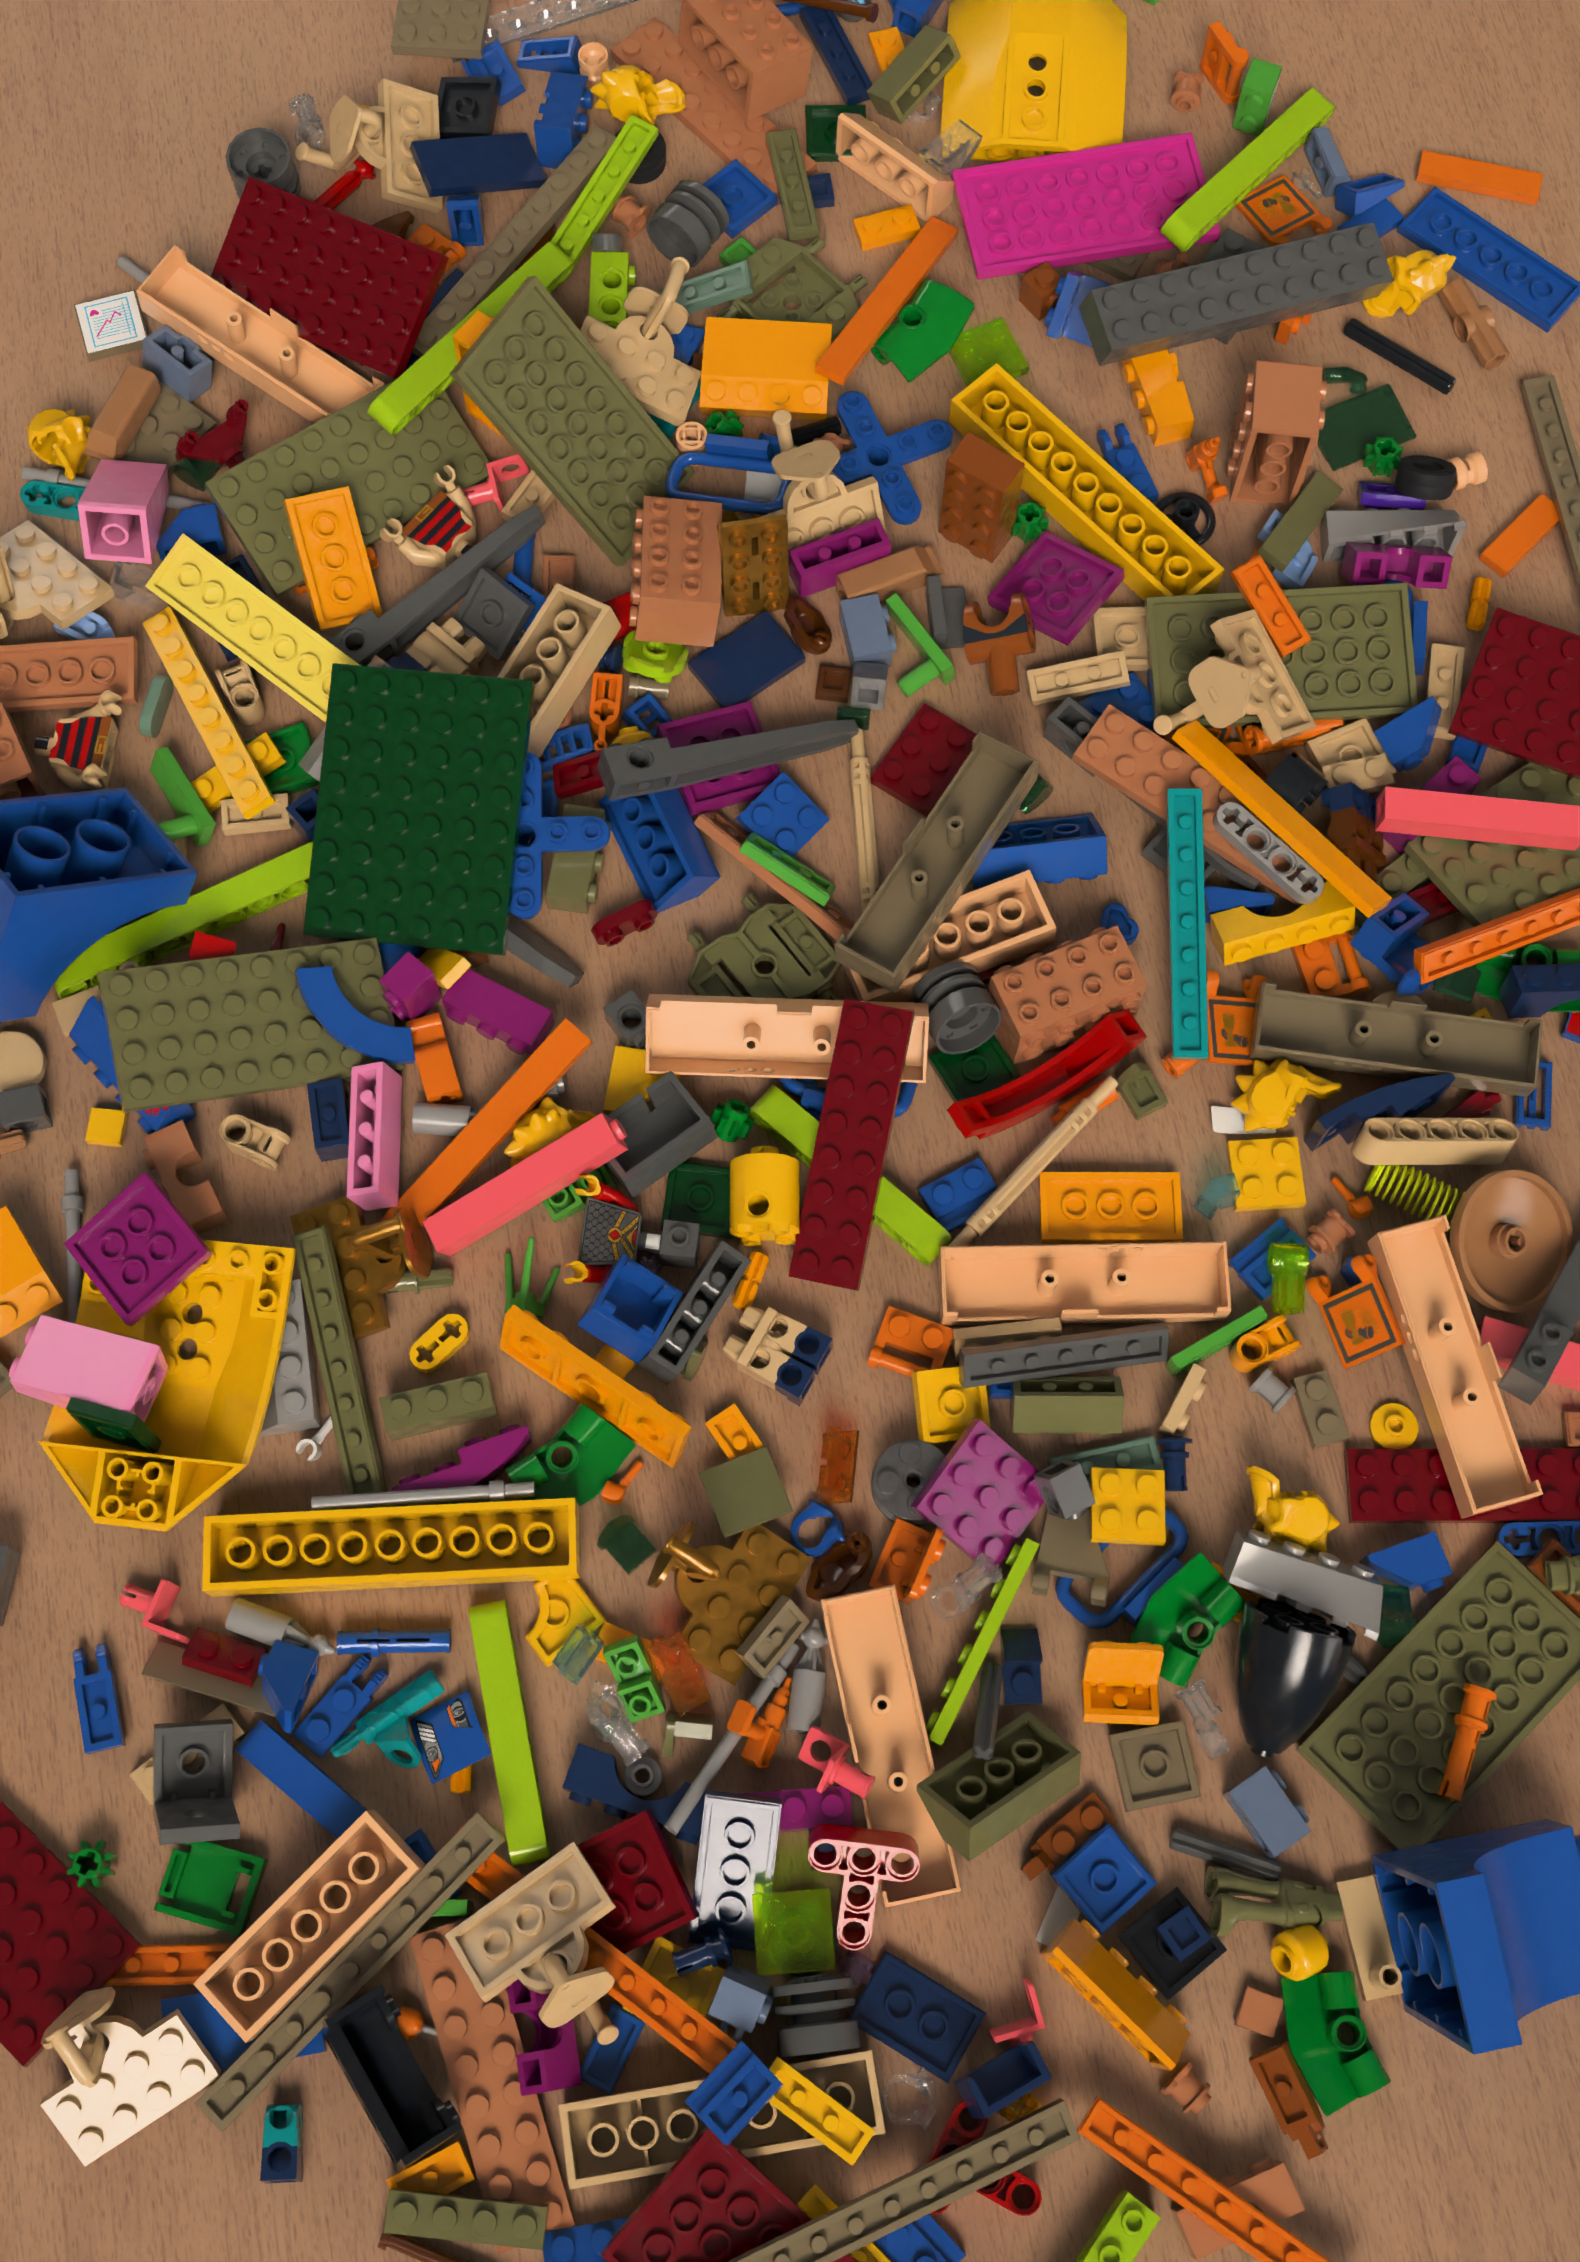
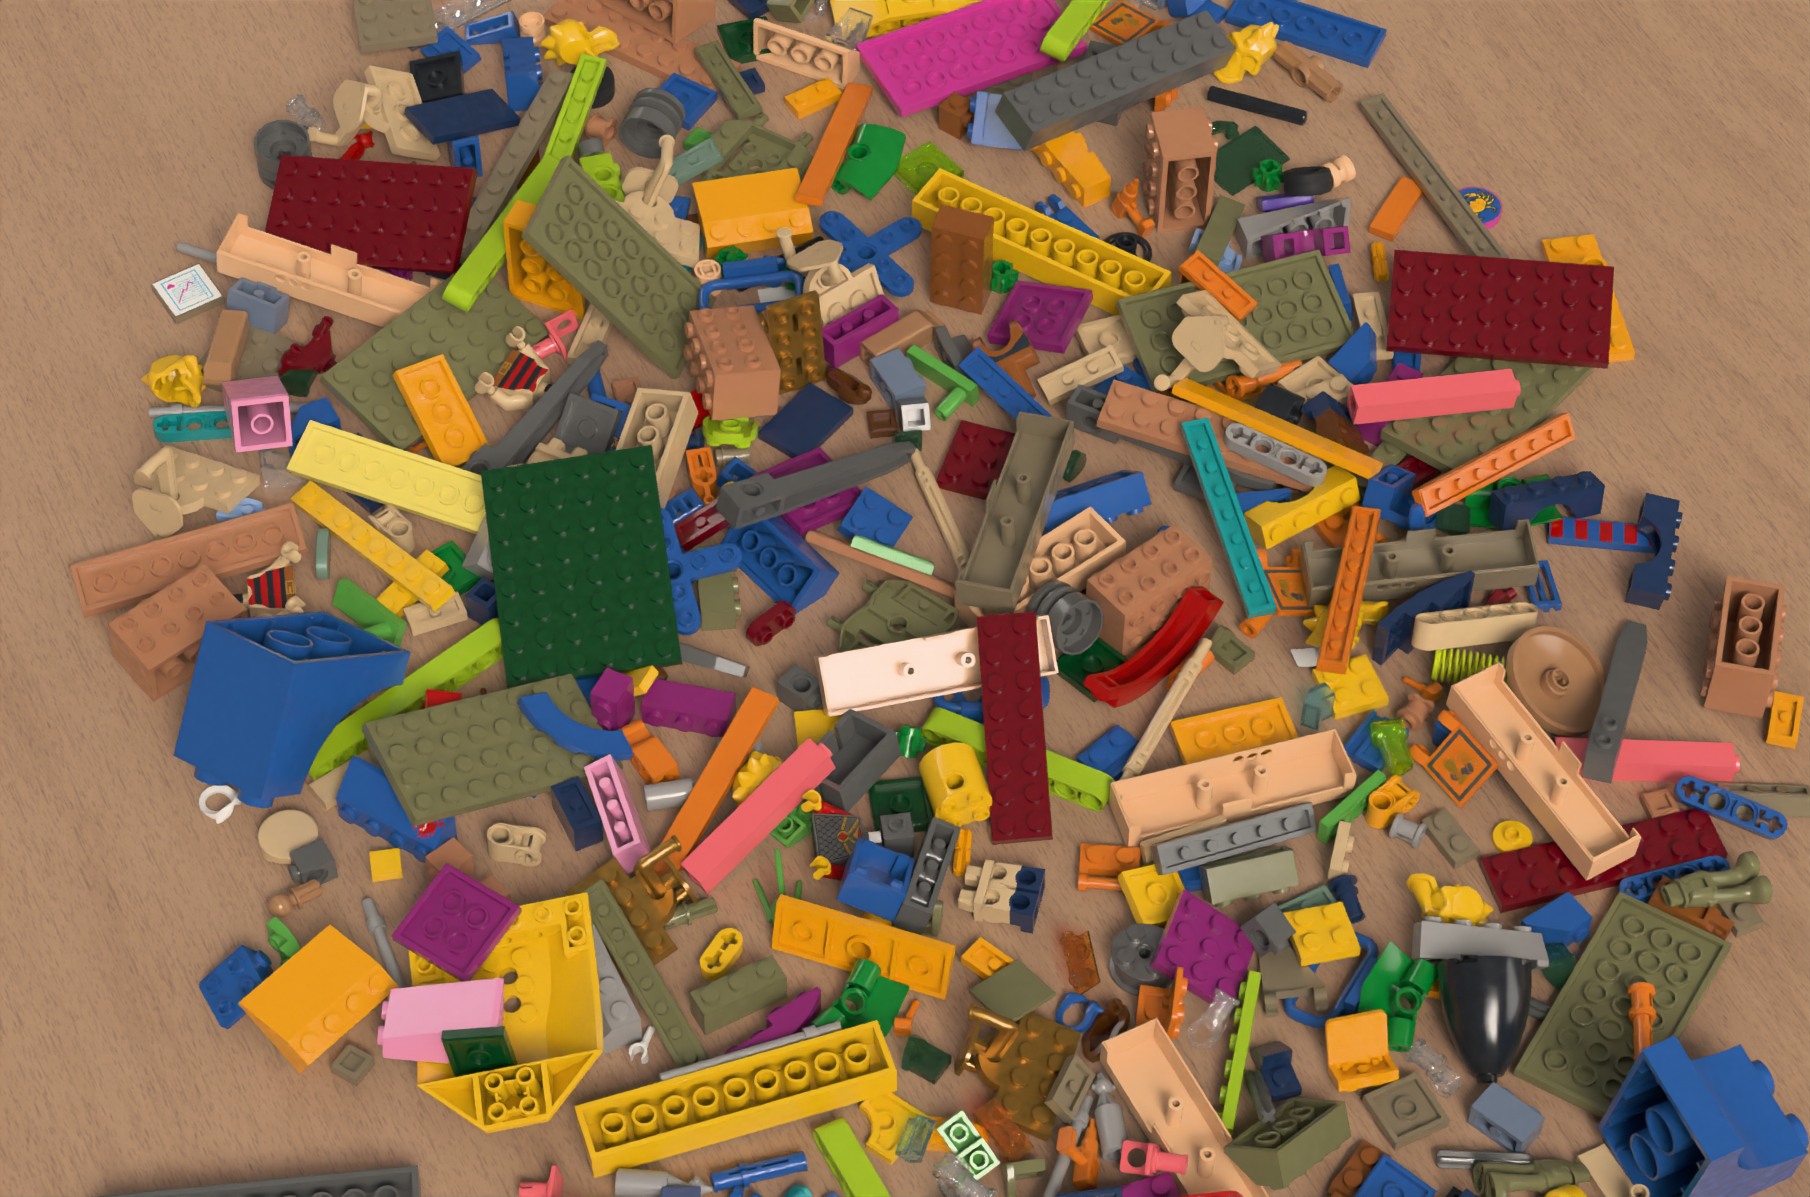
camera: 15 degrees left, 20 degrees down
(982, 683) = (999, 385): none -> blue plate
(1297, 1064) = (1348, 590): none -> orange tile

